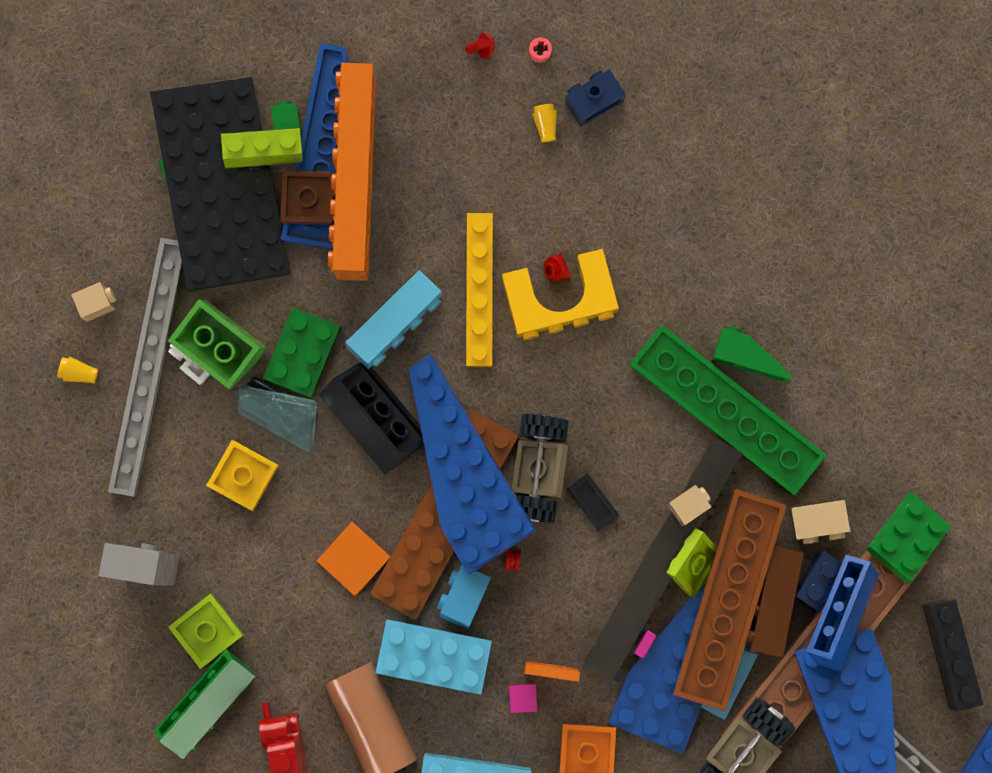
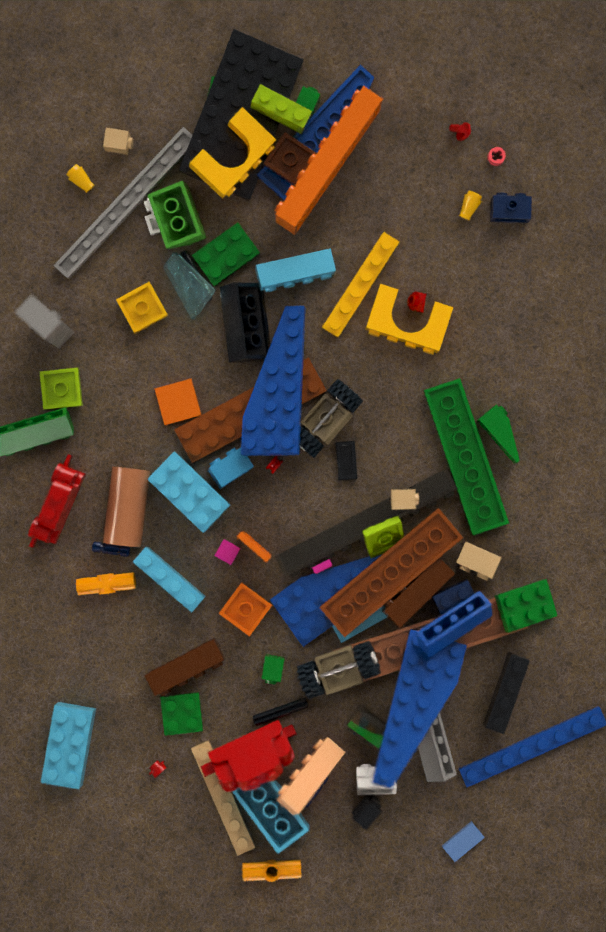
camera: 30 degrees right, 5 degrees up
(243, 268) = (224, 179): none -> yellow arch

